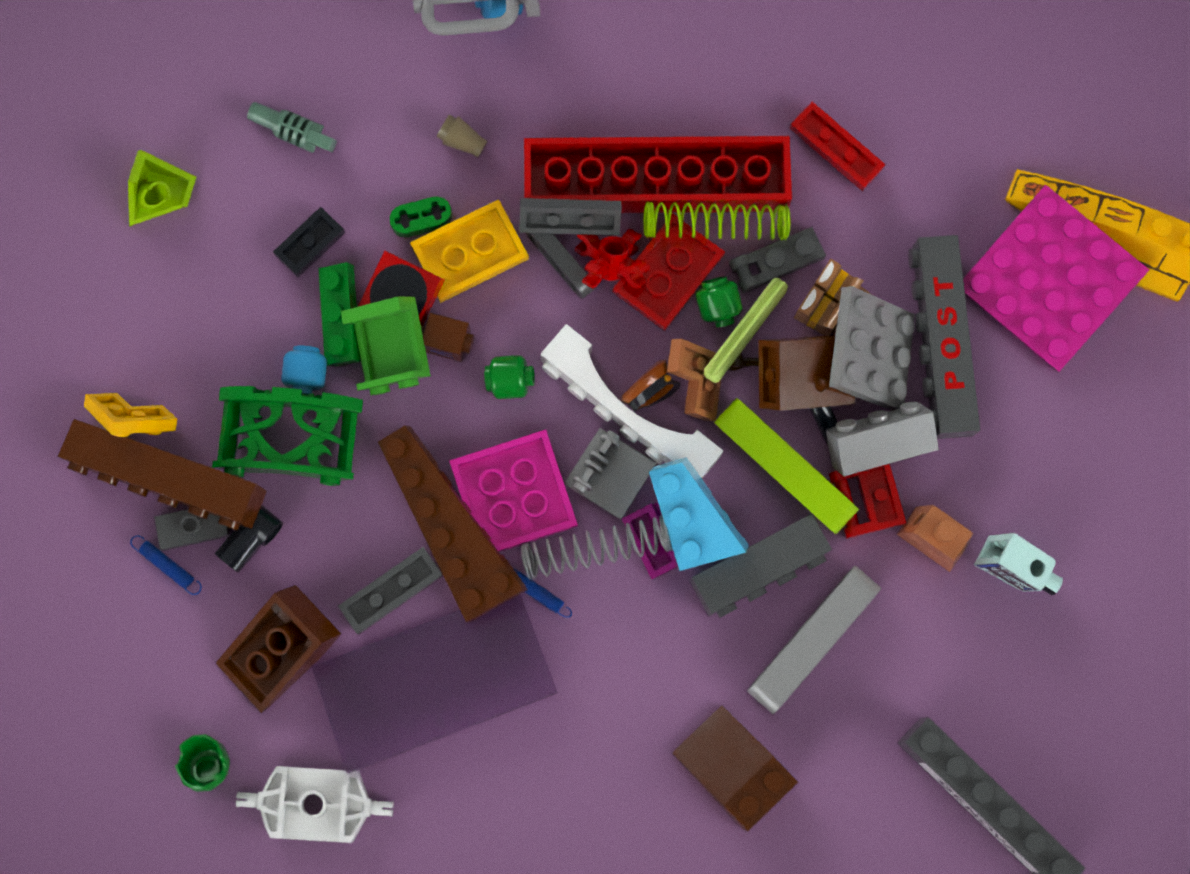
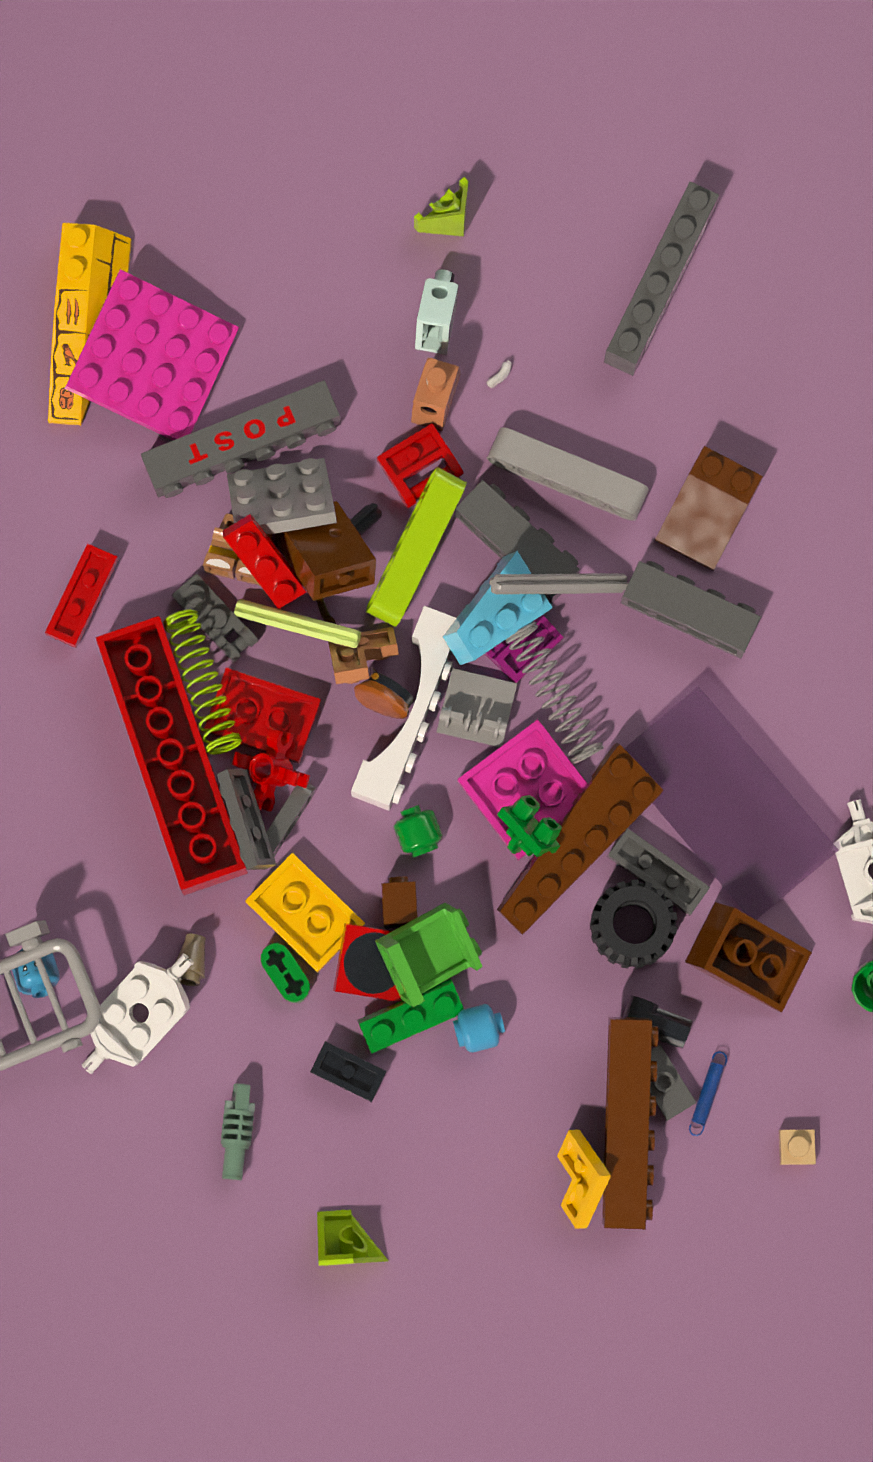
camera: 105 degrees left, 0 degrees up
(84, 631) = (797, 1147): none -> tan plate
(248, 402) = (530, 1064): green fence -> none
(326, 526) = (638, 895): none -> black tyre
(420, 54) = (119, 1033): none -> white plate
(469, 473) = (526, 831): none -> green hips
(542, 595) = (612, 731): blue piece -> none
(637, 713) = (690, 609): none -> dark grey brick
(700, 583) = (558, 583): none -> light grey axle
(719, 301) = (277, 657): green head -> none
(815, 307) = (264, 561): none -> red plate
(882, 438) = (362, 466): light grey brick -> none
(934, 604) = (498, 376): none -> white leg
(1119, 611) = (447, 213): none -> lime slope

